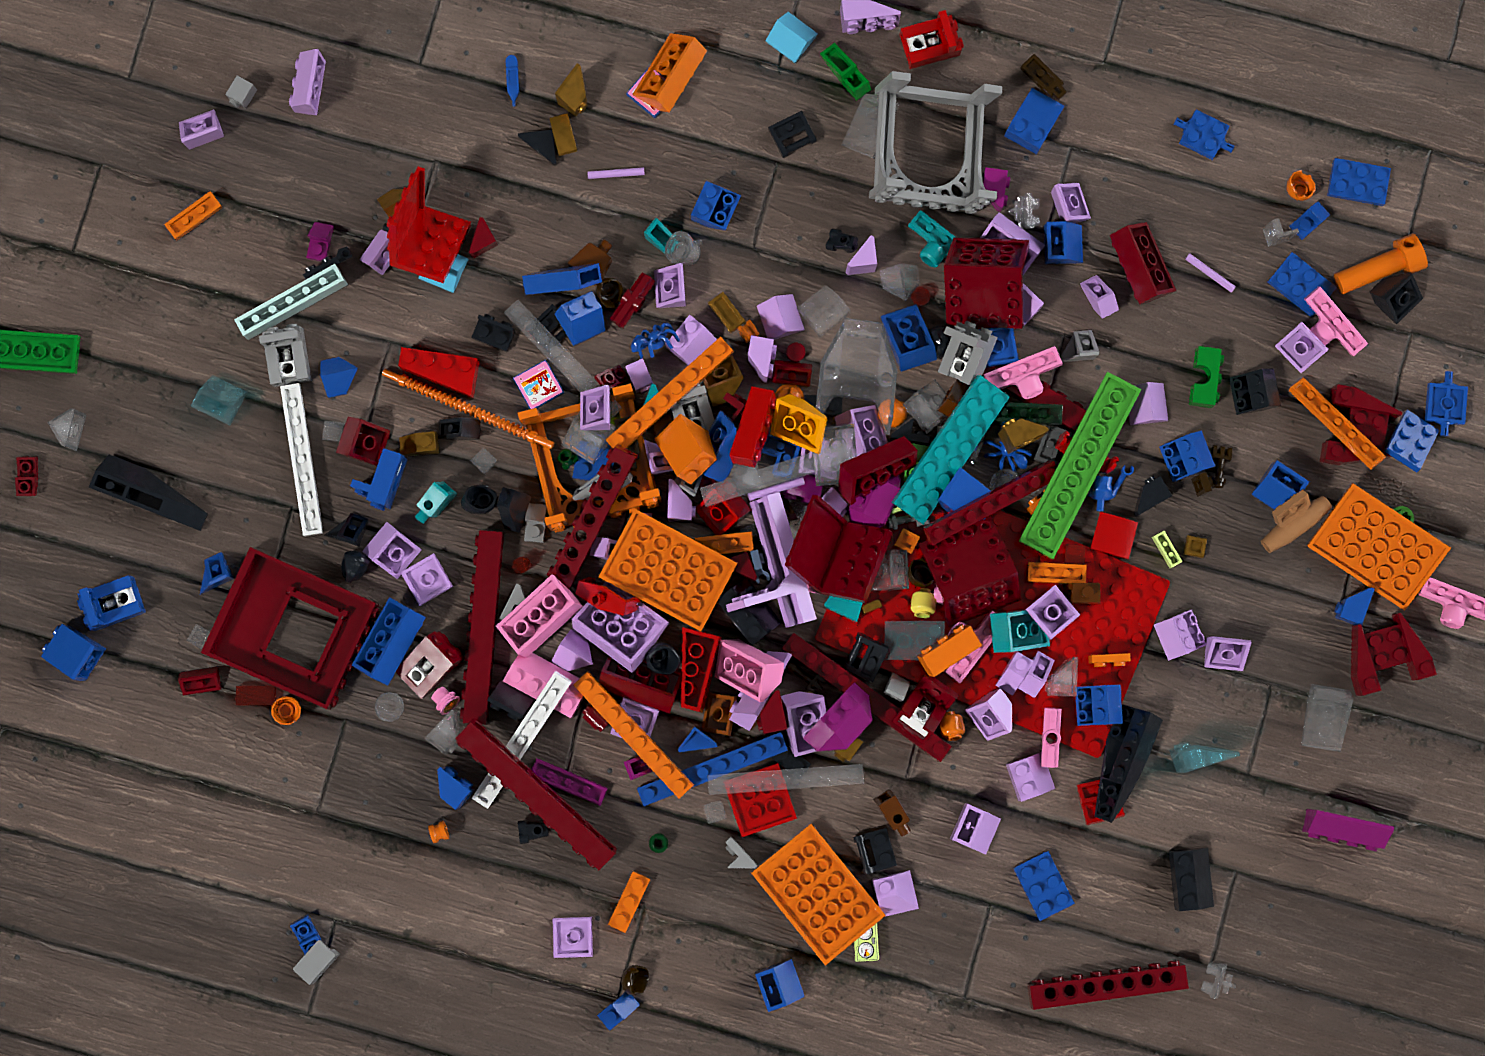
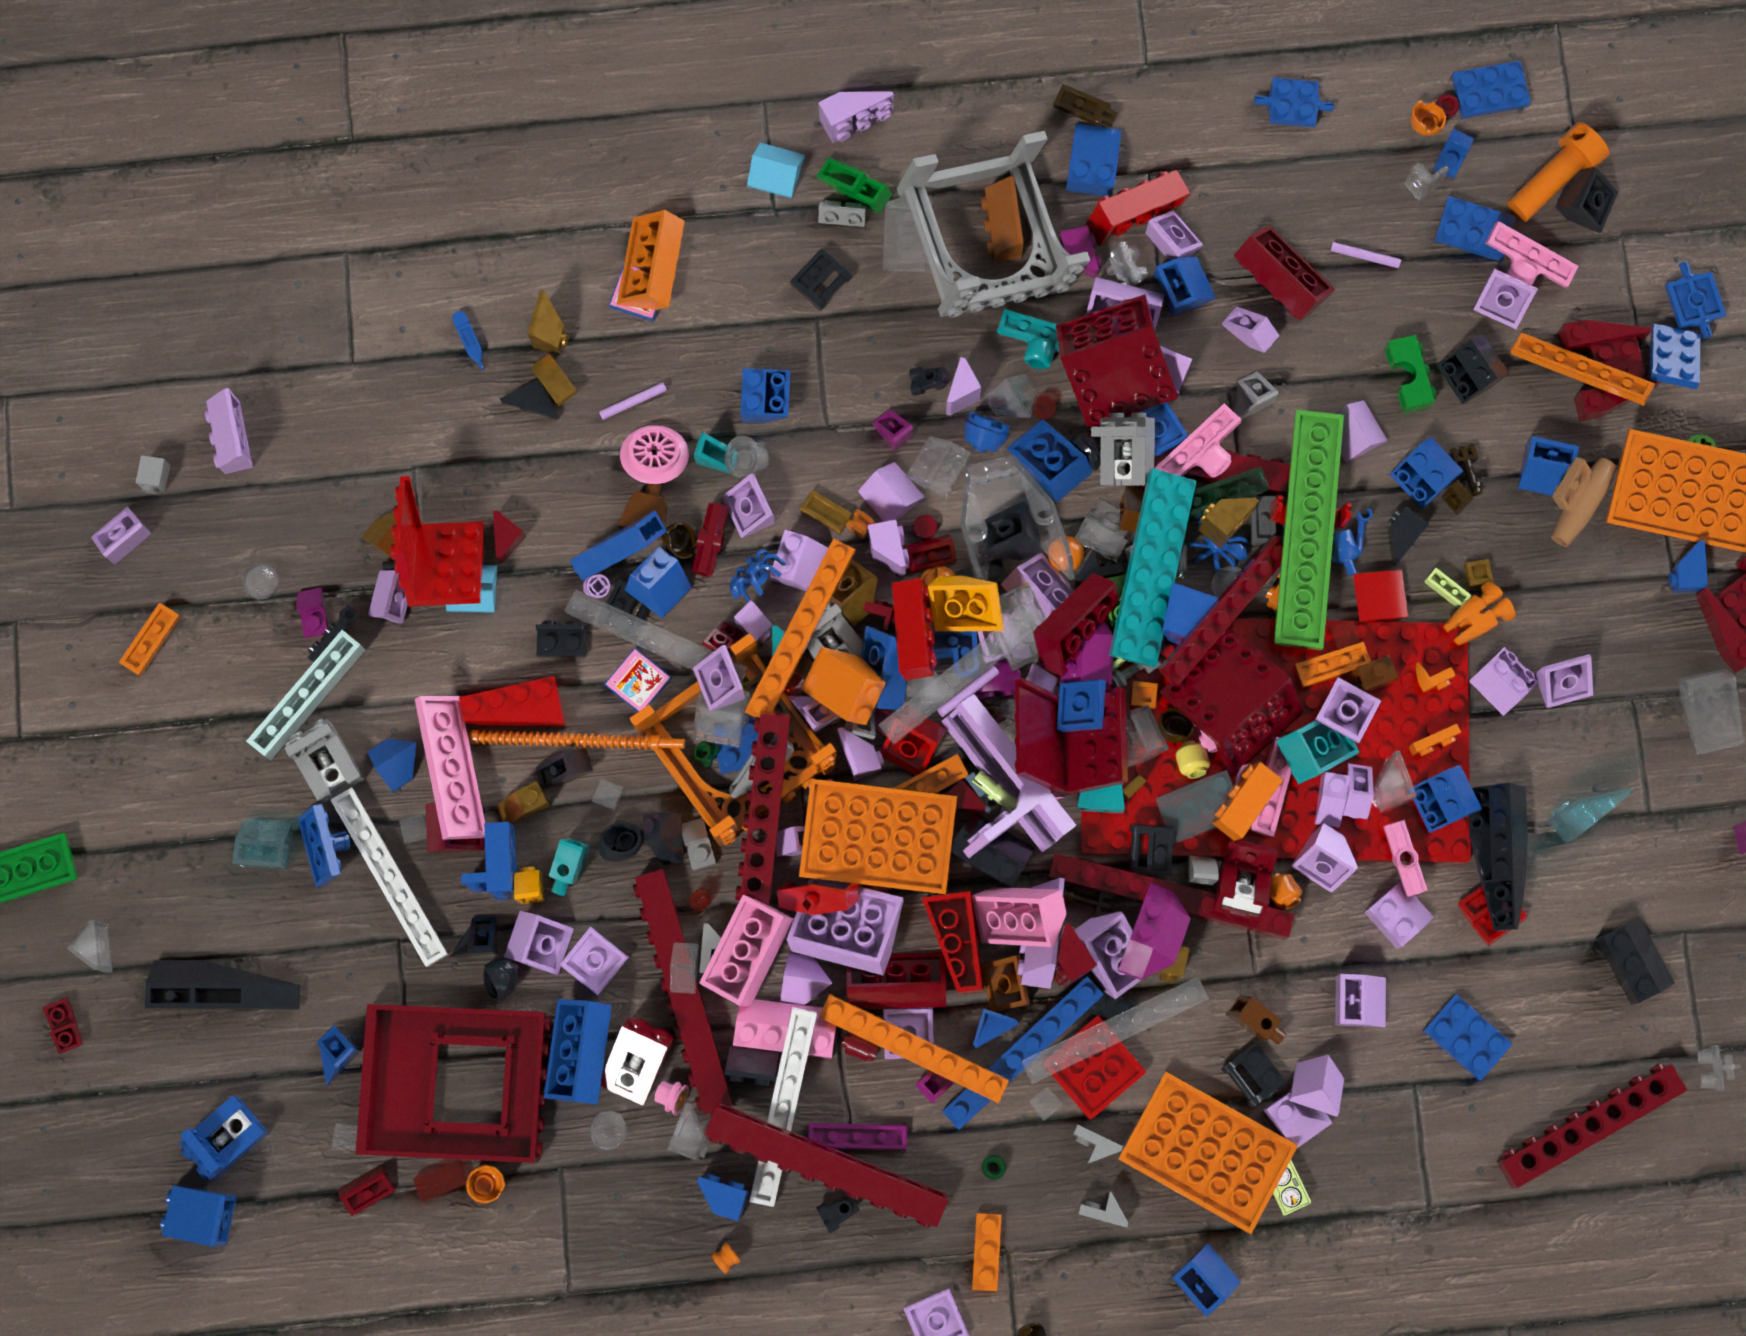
camera: 20 degrees left, 5 degrees down
(261, 417) = (322, 845): none -> blue plate
(290, 203) = (260, 581): none -> clear hair
(375, 397) = (450, 767): none -> bright pink plate
(400, 506) = (528, 886): none -> light orange slope
(489, 610) = (684, 968): none -> clear slope
(532, 304) = (593, 588): none -> lavender wheel
(605, 233) = (651, 474): none -> bright pink piece
(651, 433) = (794, 685): none -> clear red plate
(663, 658) = (913, 944): black hair -> none
(729, 911) = (1111, 1213): none -> light grey slope
(767, 569) = (995, 791): none -> yellowish green pin
(801, 269) = (893, 429): none -> magenta slope
(820, 86) = (832, 213): none -> light grey hinge
(855, 531) = (1081, 705): none -> blue tile
(857, 383) = (1012, 534): none -> black slope
(868, 298) = (985, 432): none -> blue cone
(918, 877) = (1318, 1085): none -> lavender slope
(945, 142) = (1002, 220): none -> dark orange slope
(947, 38) = (951, 96): red brick -> none
(1052, 169) = (1136, 205): none -> wedge
(1130, 616) = (1439, 680): none -> orange plate
(1177, 581) = (1474, 620): none -> orange piece
(1321, 181) = (1449, 105): none -> dark red tile

